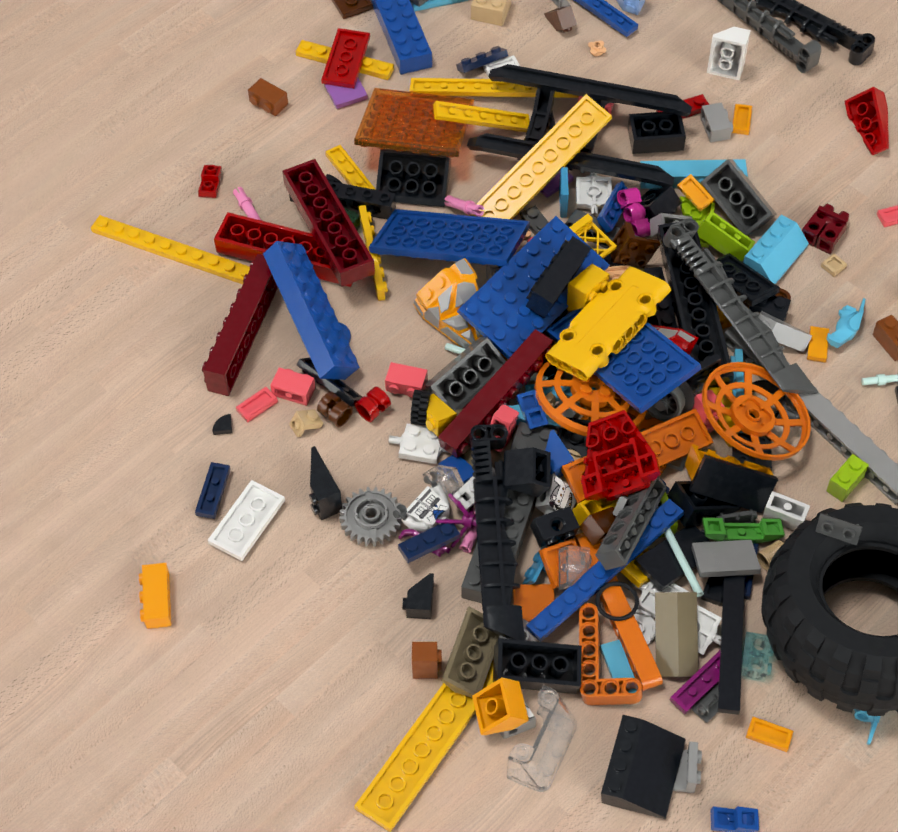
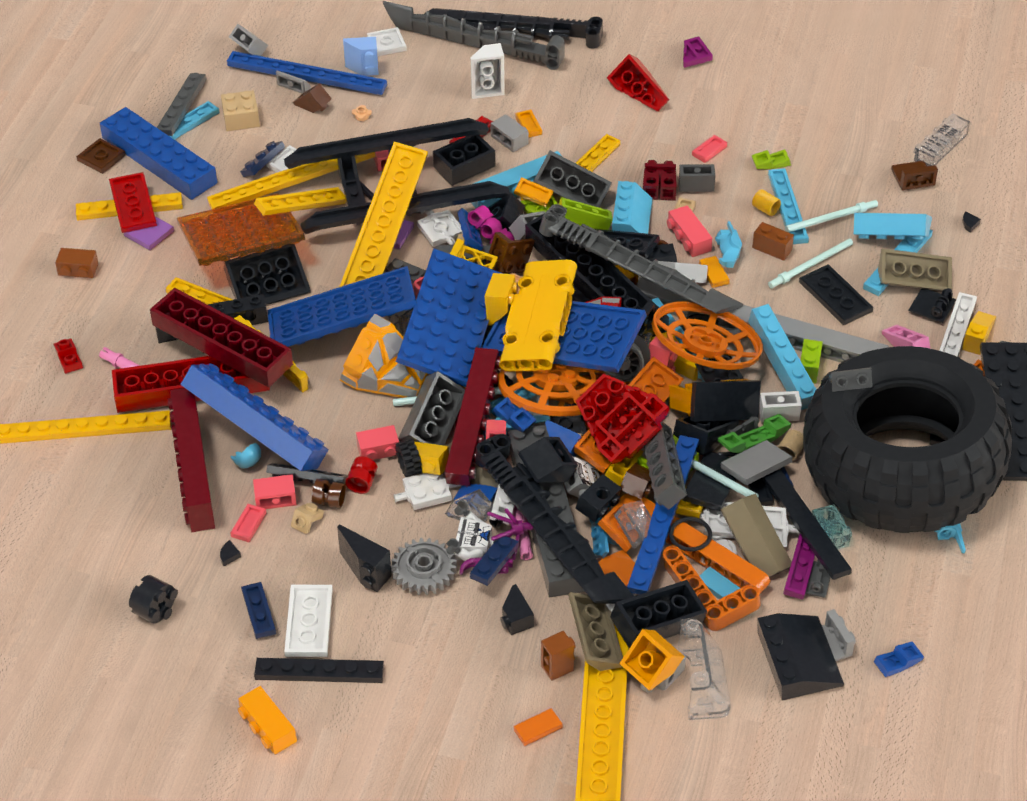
camera: 30 degrees left, 10 degrees down
(132, 440) = (153, 599): none -> black brick
(228, 570) = (319, 670): none -> black plate
(290, 343) = (248, 457): none -> medium azure hair
(371, 717) = (538, 727): none -> orange tile
(467, 207) = (338, 279): bright pink pin -> none
(557, 276) = (471, 294): black brick -> none
(563, 192) = (417, 235): dark azure tile -> none
(623, 500) = (644, 456): light grey tile -> none
(769, 734) = (881, 582): light orange tile -> none
(783, 177) = (598, 152): none -> yellow tile
(819, 293) = (689, 231): none -> coral brick
(820, 459) = (782, 354): none -> medium azure brick
(860, 241) = (696, 177): none -> dark grey brick

